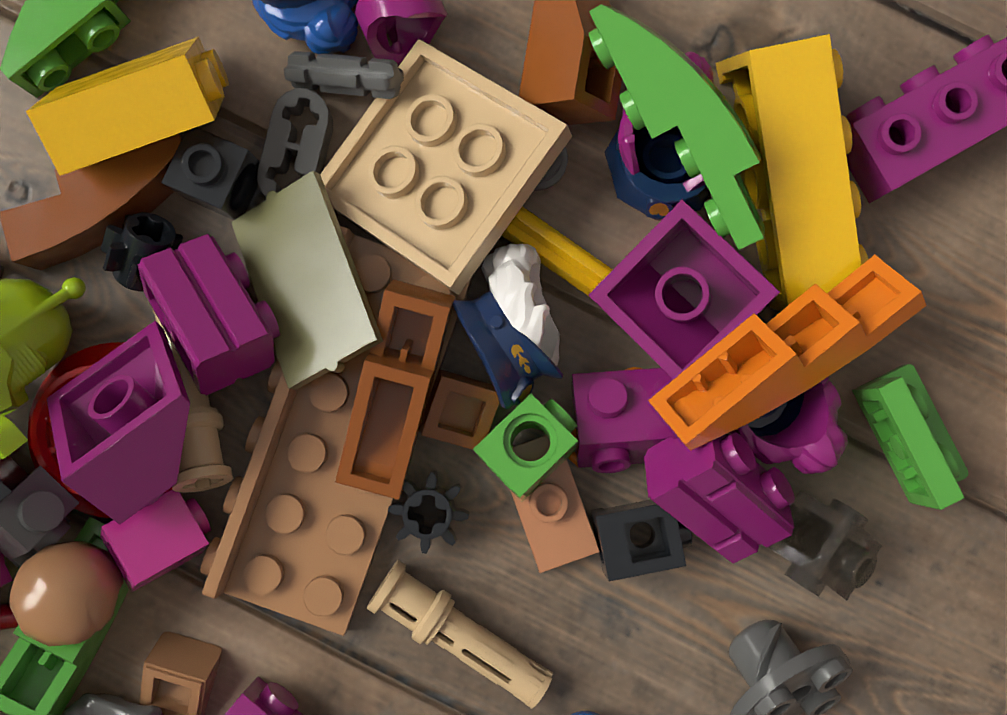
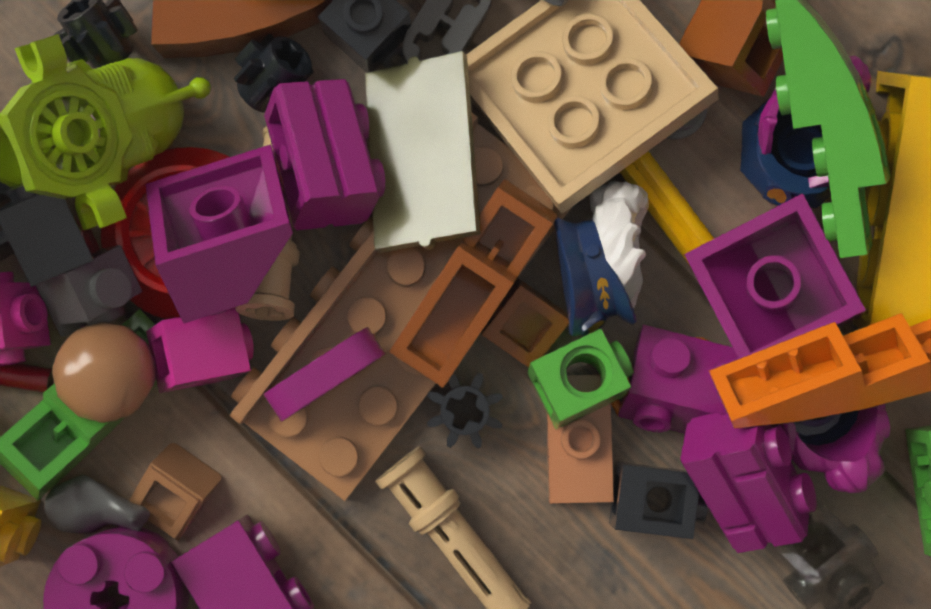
camera: 10 degrees right, 0 degrees up
(279, 524) = (324, 374): none -> magenta beam

